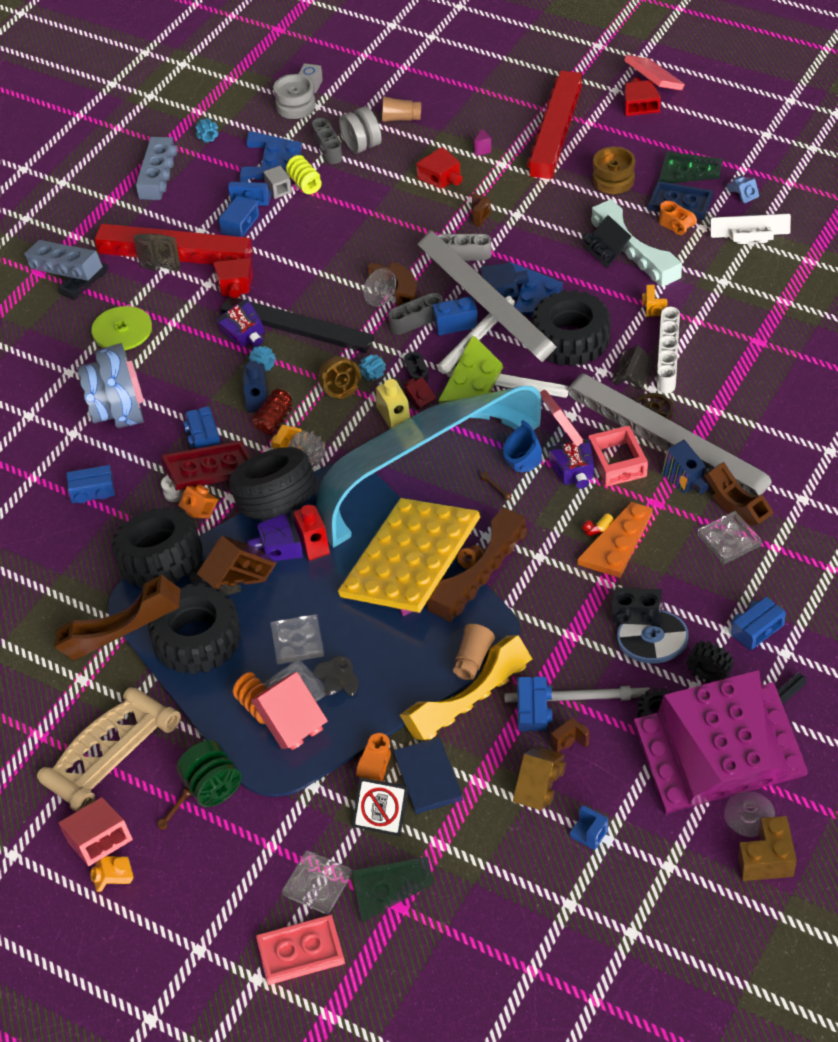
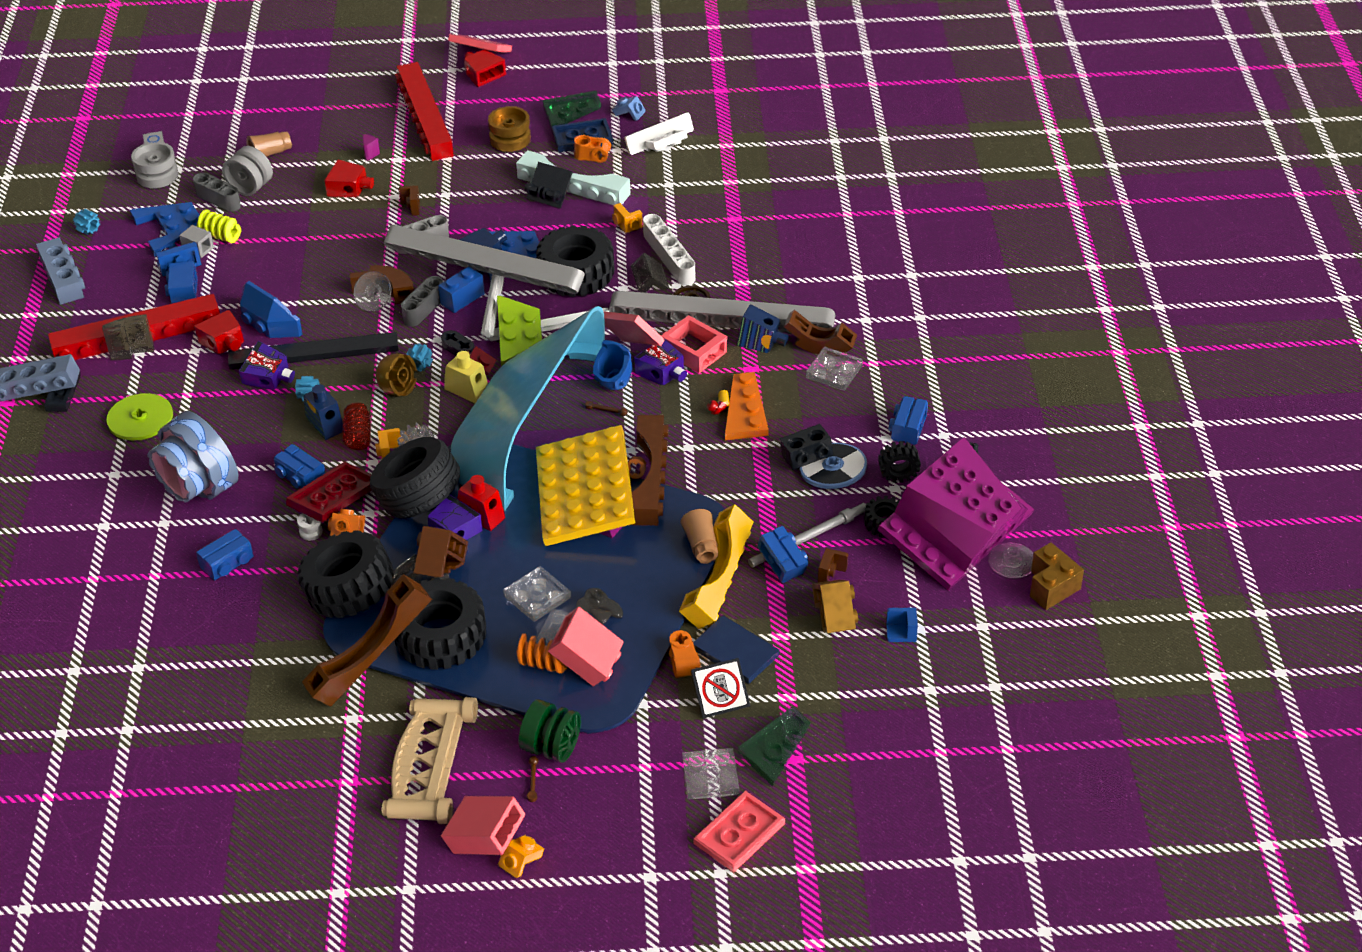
camera: 35 degrees left, 5 degrees down
(279, 274) = (267, 313): none -> blue wedge

